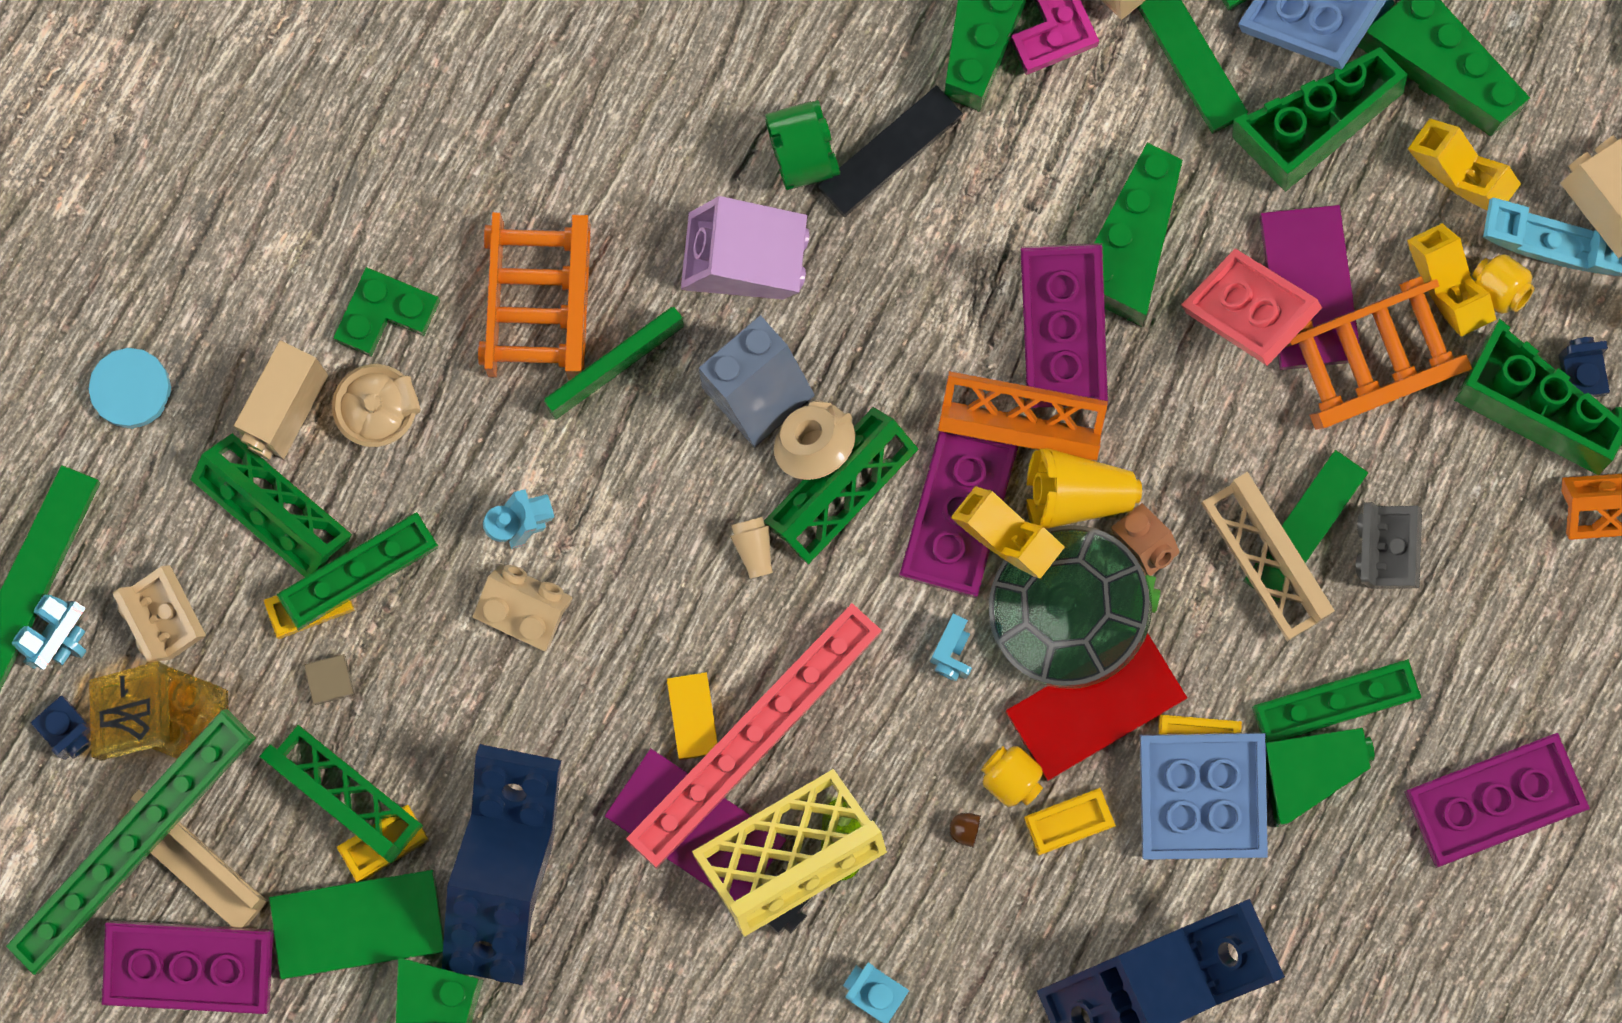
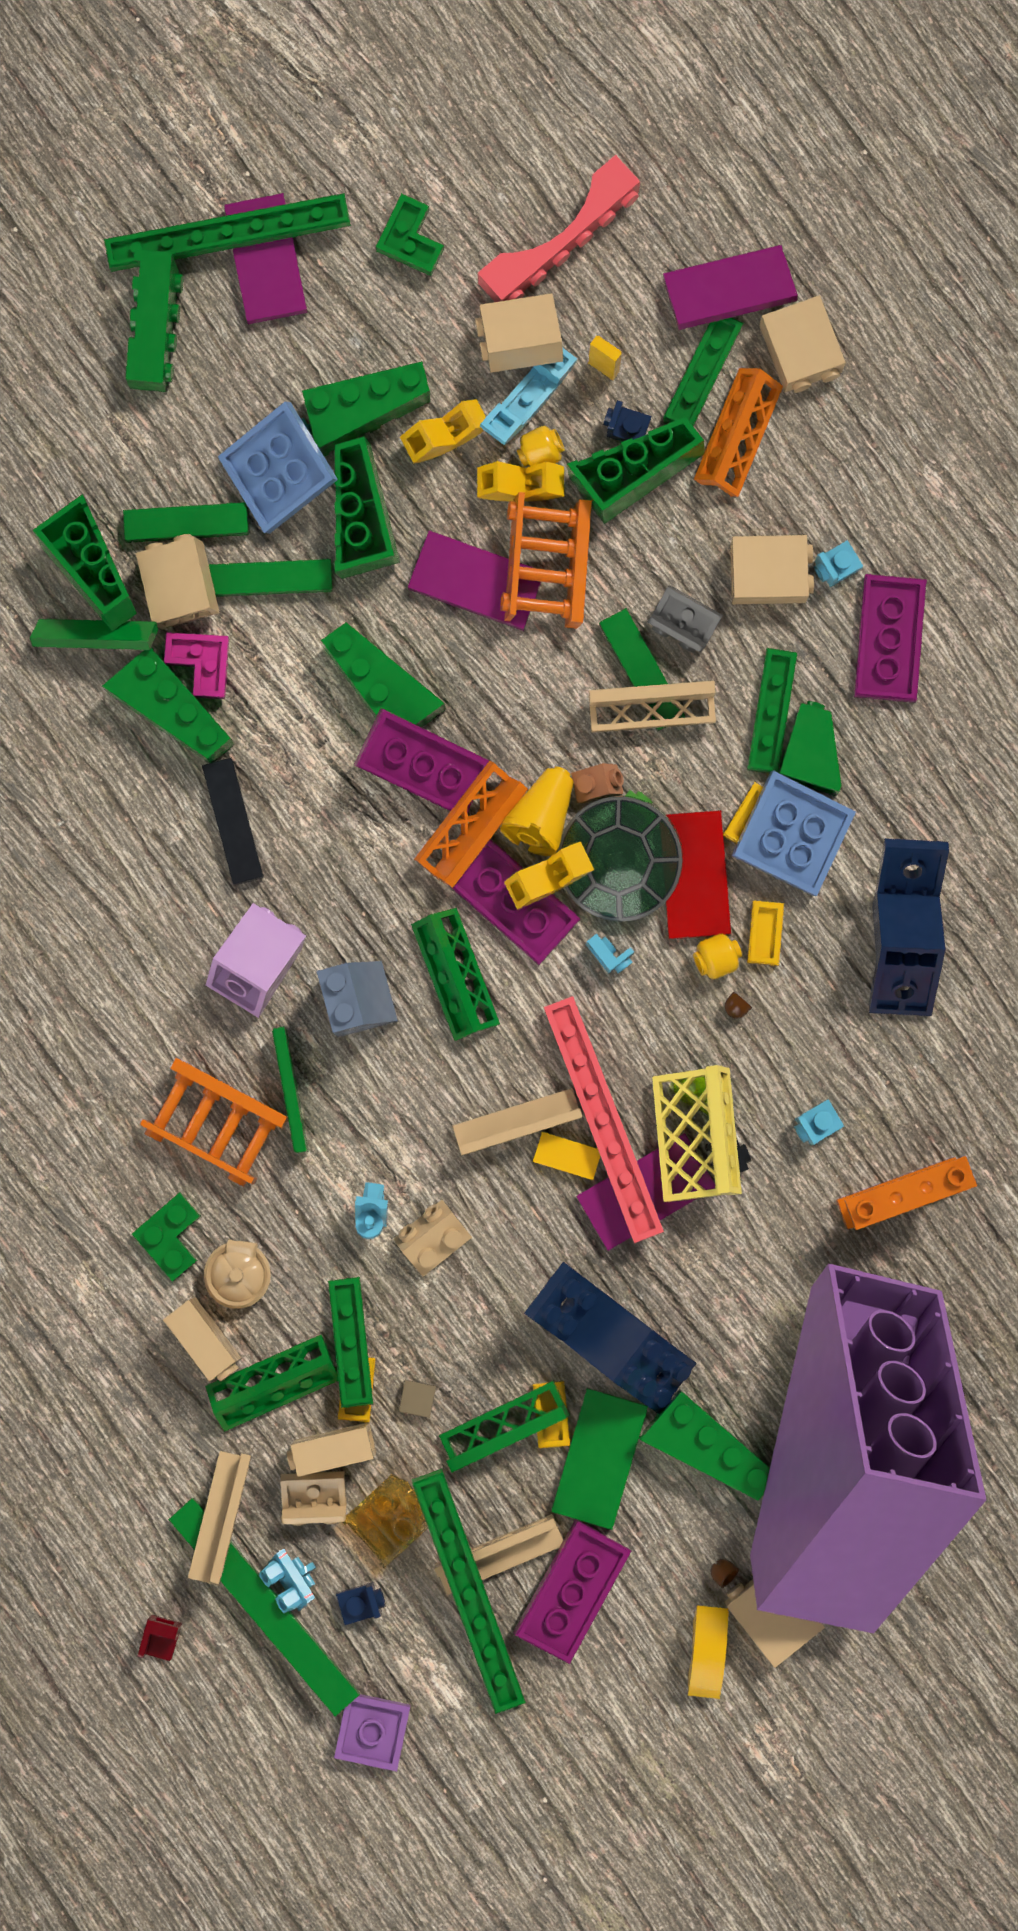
camera: 65 degrees left, 5 degrees up
(87, 520) = (219, 1518): none -> tan fence
(129, 388) = (135, 1444): medium azure tile -> none
(129, 711) = (373, 1550): clear yellow tile -> none
(223, 607) = (331, 1449): none -> tan brick
(703, 638) = (517, 1121): none -> tan fence
(753, 546) = (469, 1056): tan cone -> none
(802, 144) = (200, 881): green brick -> none
(814, 441) = (416, 977): tan piece -> none
(1251, 306) = (473, 628): coral plate -> none
(1503, 618) = (770, 569): none -> tan brick
(1552, 694) = (837, 564): none -> medium azure bracket

